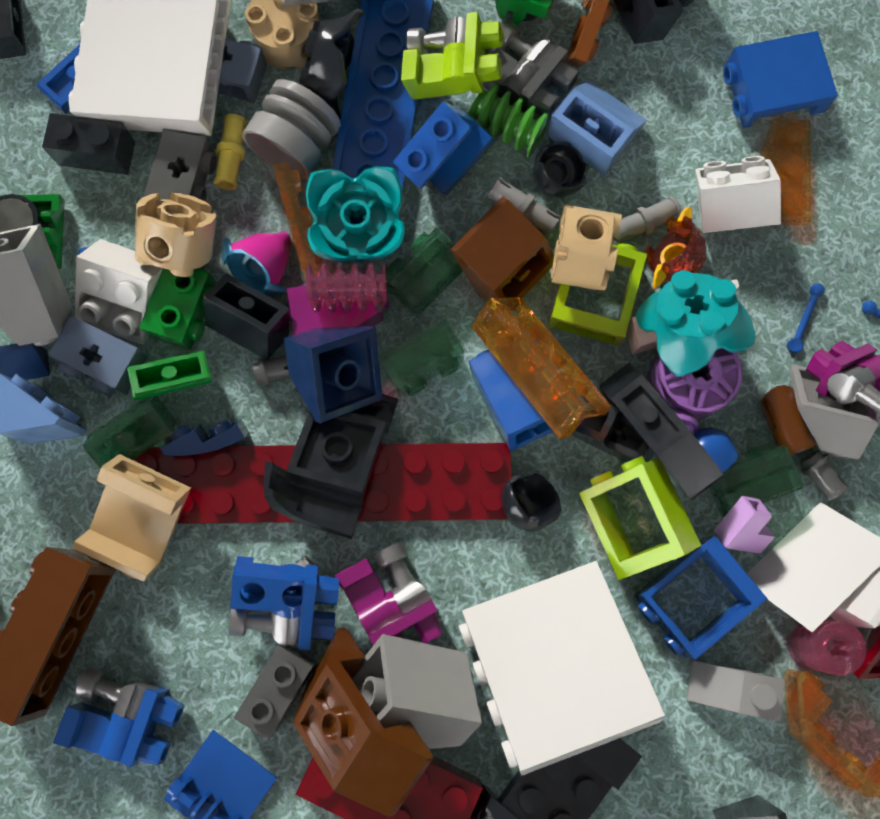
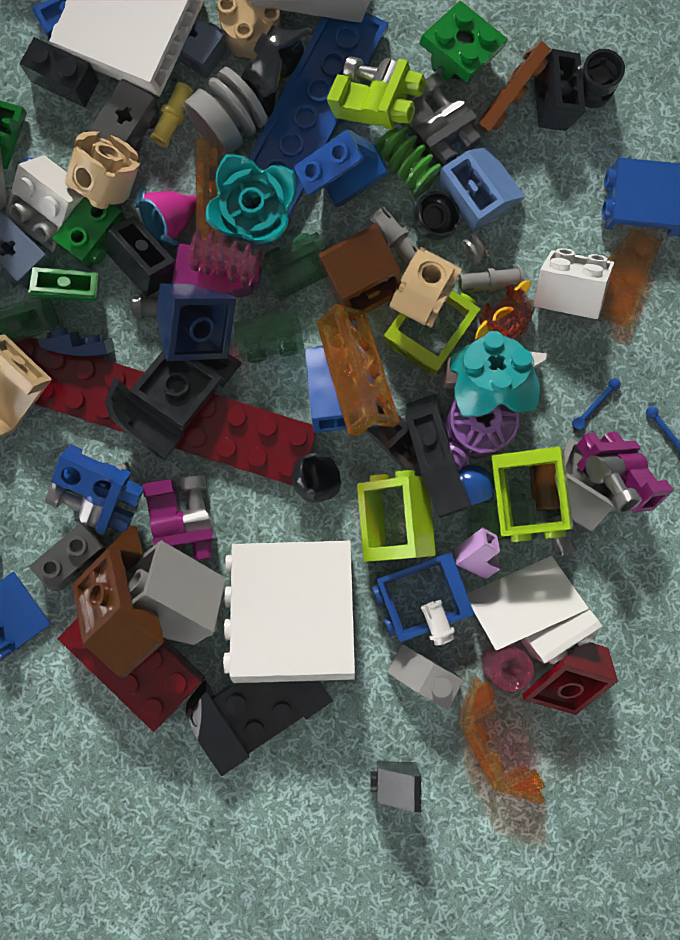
camera: 20 degrees right, 5 degrees up
(614, 191) = (475, 248): none -> light grey bush
(732, 623) = (438, 623): none -> white pin
(823, 471) = (527, 459): none -> lime window

